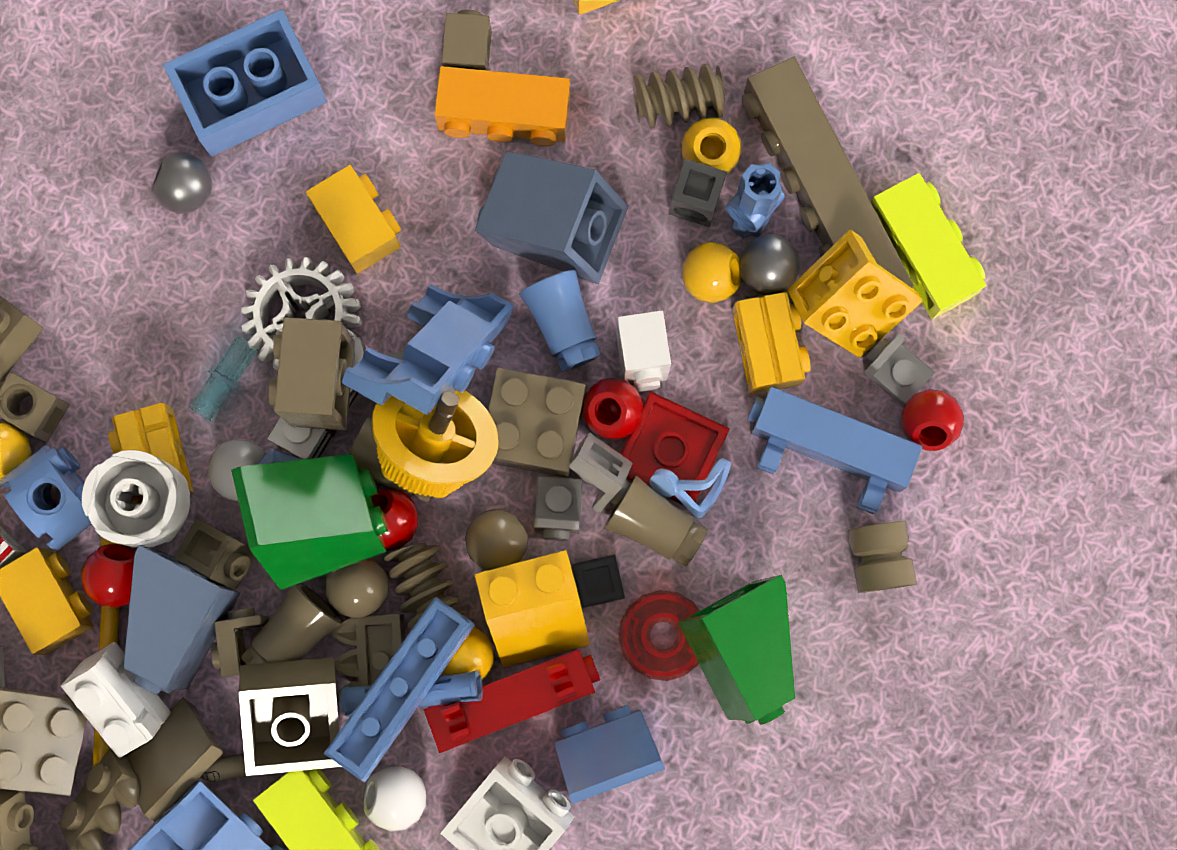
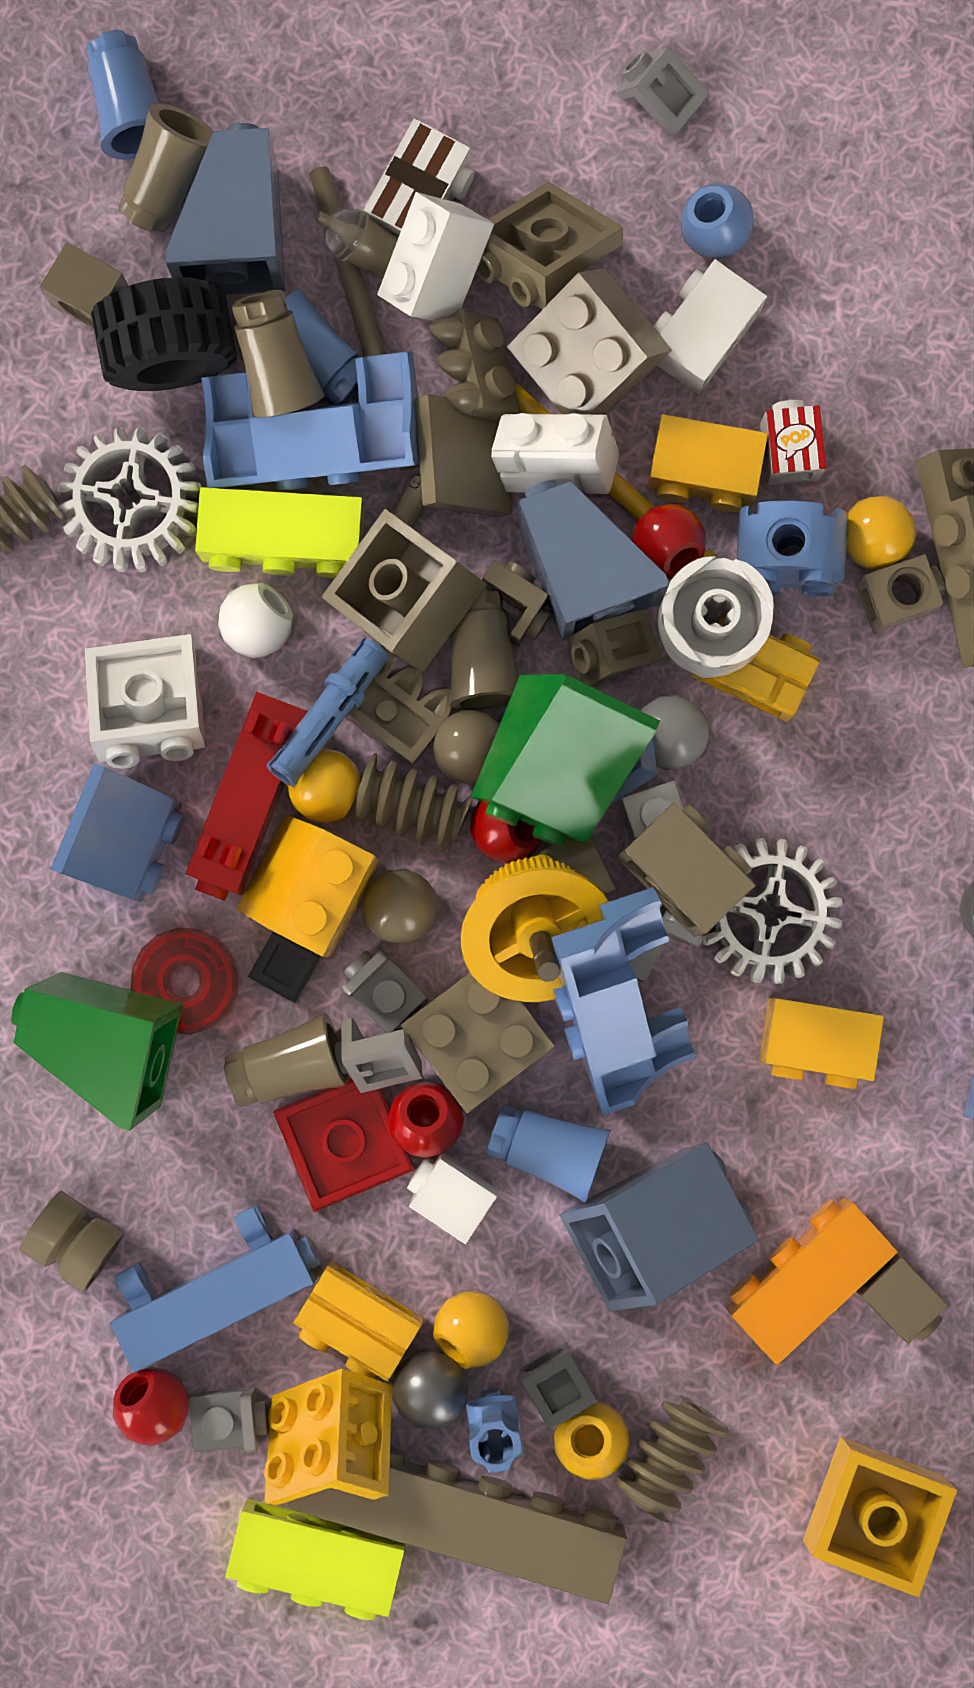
camera: 130 degrees right, 5 degrees up
(223, 379) = (772, 790): clear light blue axle -> none
(399, 689) = (338, 704): medium blue tile -> none
(668, 485) = (310, 1107): light blue piece -> none

